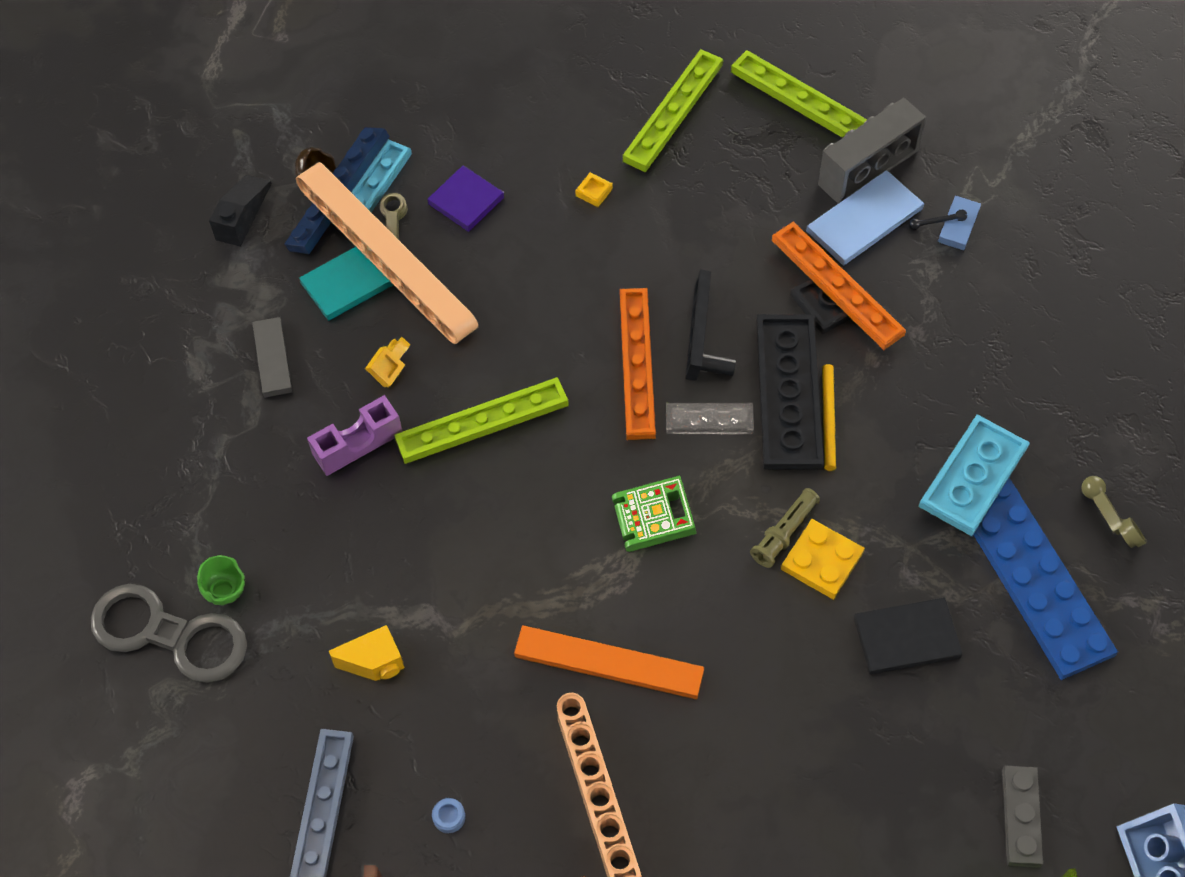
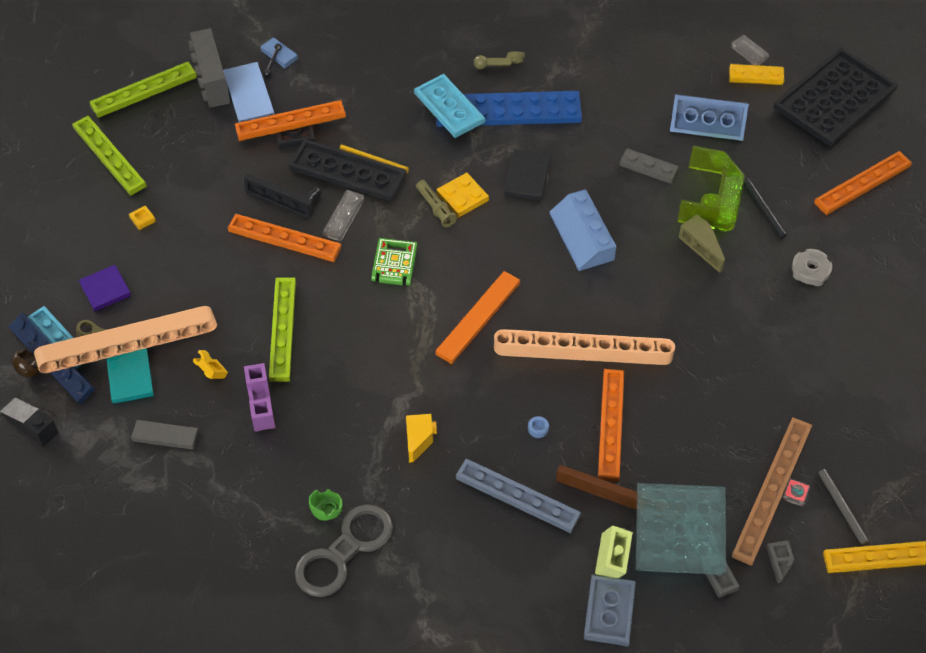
camera: 70 degrees left, 5 degrees down
(832, 756) = (583, 231): none -> medium blue slope

